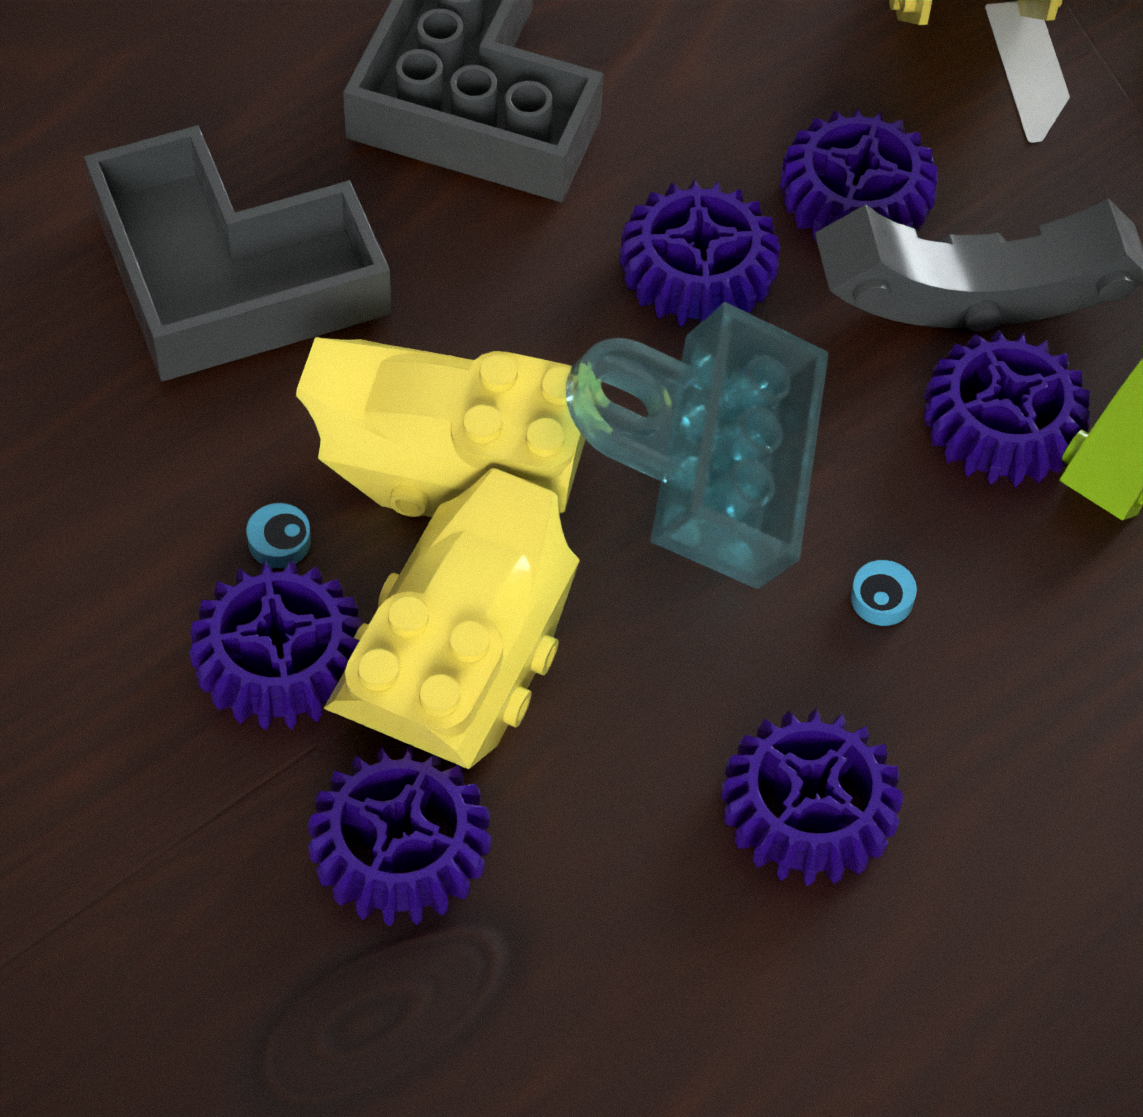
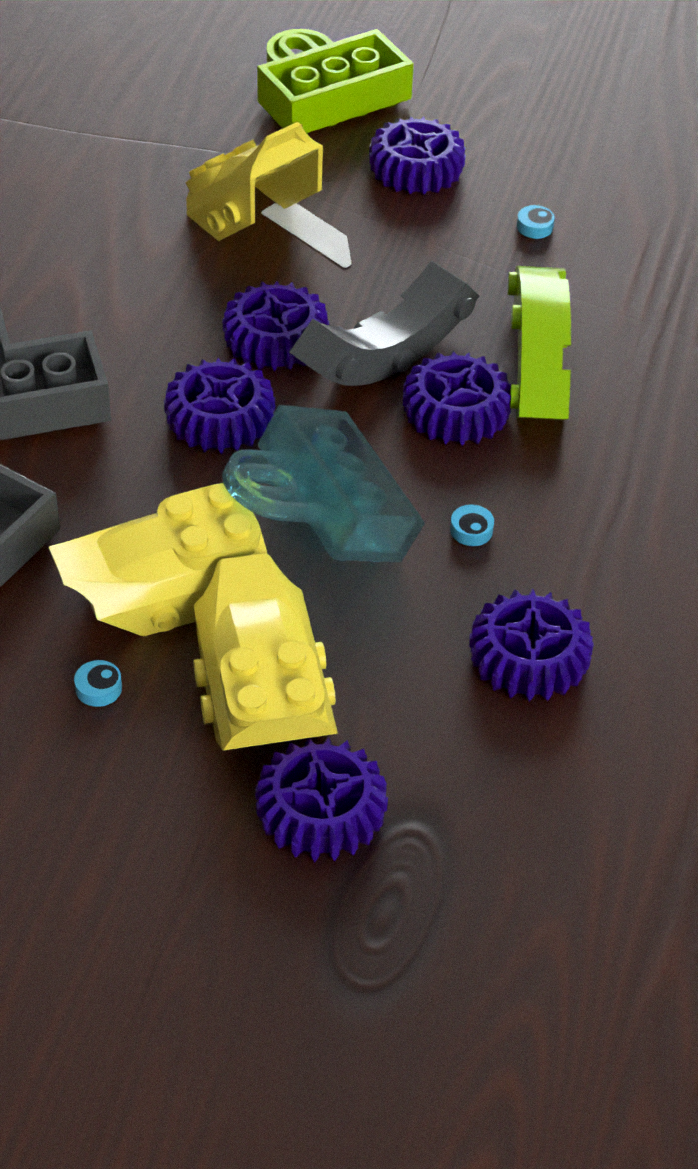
camera: 35 degrees left, 10 degrees down
(311, 624) = (154, 755): dark purple gear -> none

